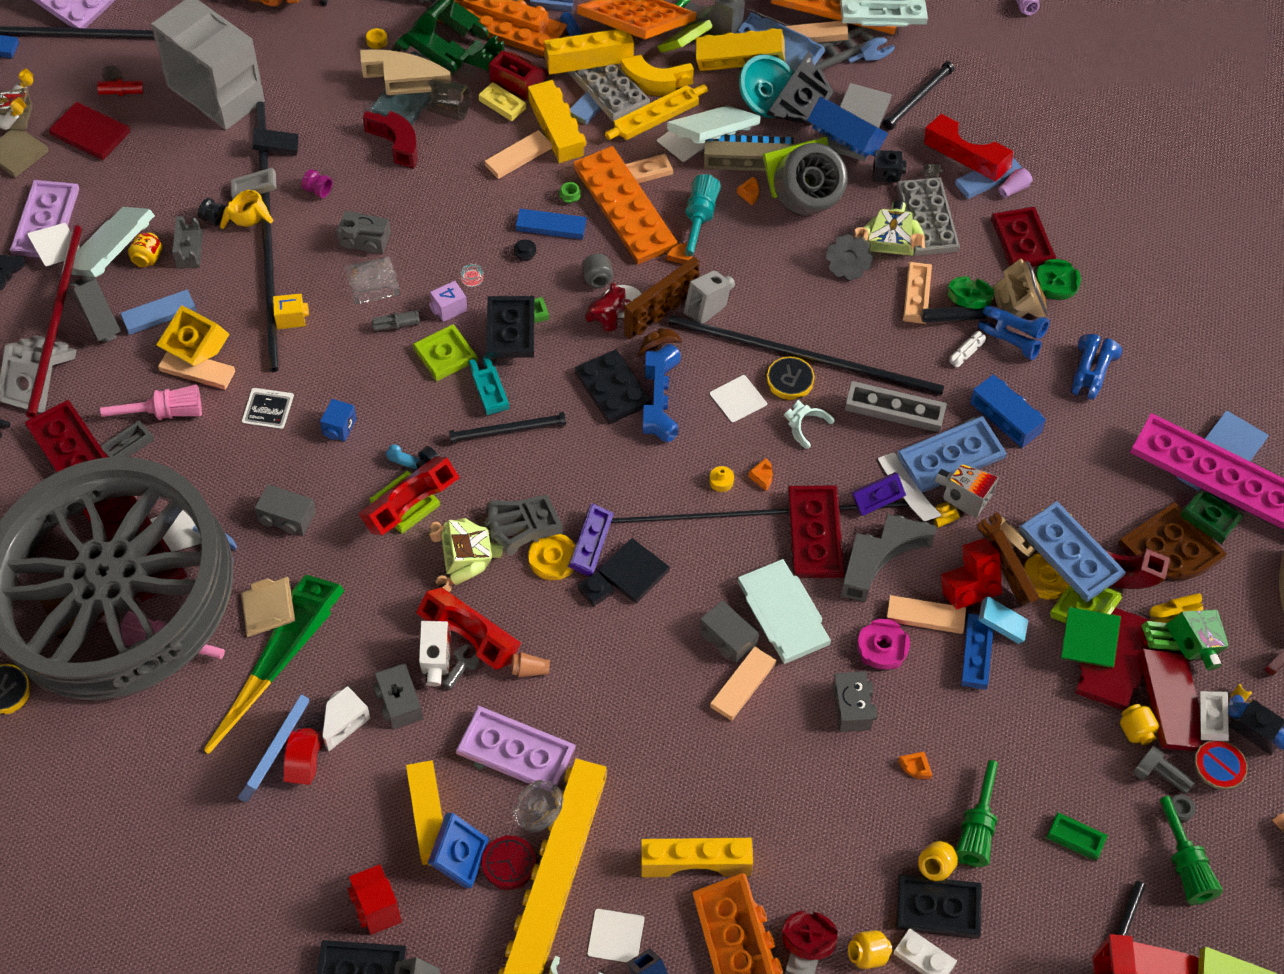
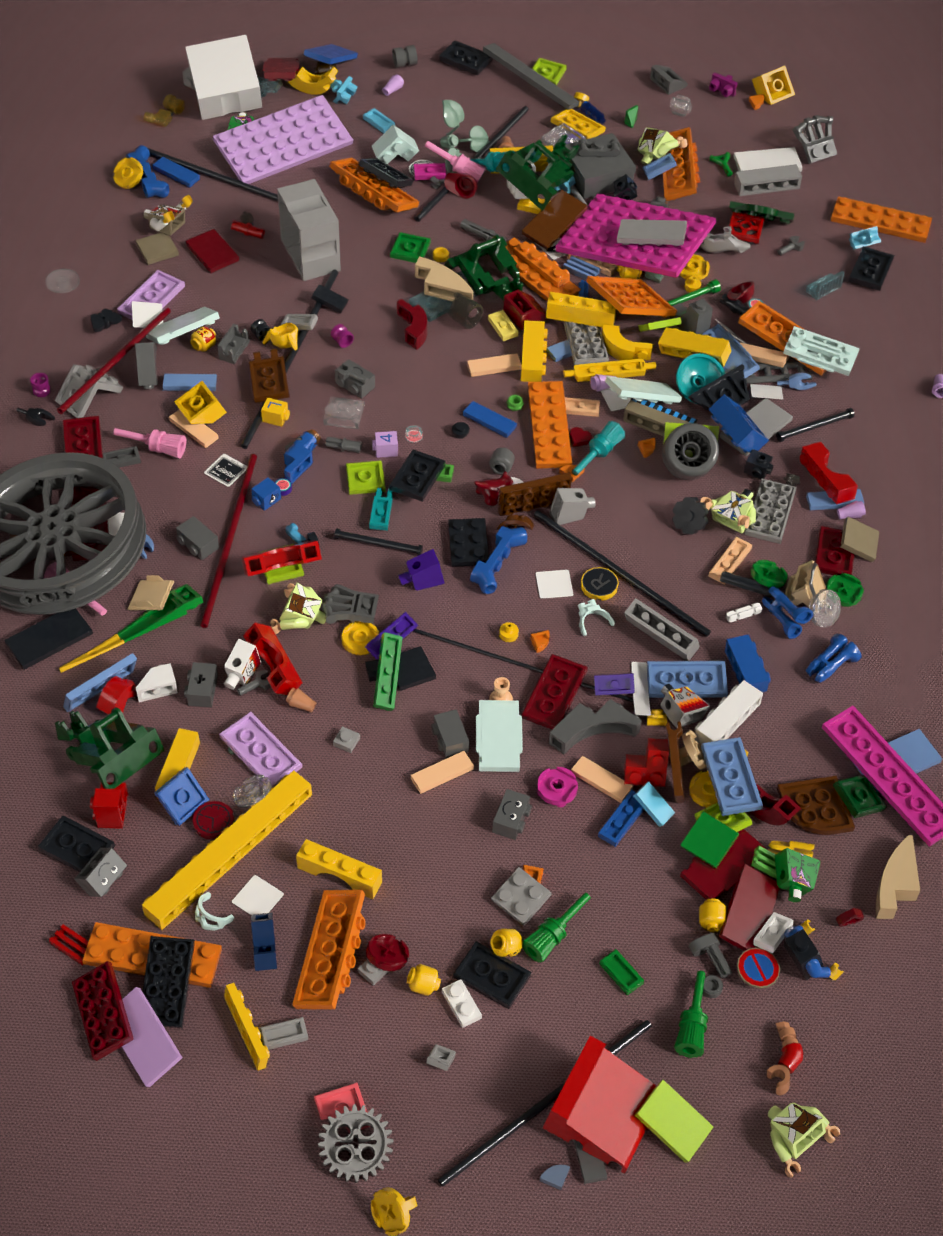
camera: 25 degrees right, 5 degrees down
(168, 716) = (48, 637): none -> black tile
(257, 269) = (269, 377): none -> reddish brown tile
(324, 499) = (228, 542): none -> dark red piece
(335, 42) = (410, 247): none -> green tile
(336, 843) = (96, 747): none -> dark green container
(350, 354) = (299, 454): none -> blue plate
(353, 398) = (285, 486): none -> tile
(585, 444) = (423, 571): none -> dark purple torso
(609, 691) = (346, 739): none -> light grey plate
(614, 586) = (387, 671): none -> plate
(655, 131) = (598, 382): none -> lavender cone
(668, 207) = (580, 437): none -> dark red tile
(758, 556) = (501, 691): none -> light nougat piece
(845, 75) = (766, 391): none -> white sticker
(919, 796) = (521, 896): none -> light grey plate
(1024, 478) = (729, 713): none -> white brick
(1043, 213) = (859, 539): none -> dark tan tile
(1056, 308) = (825, 608): none -> clear plate

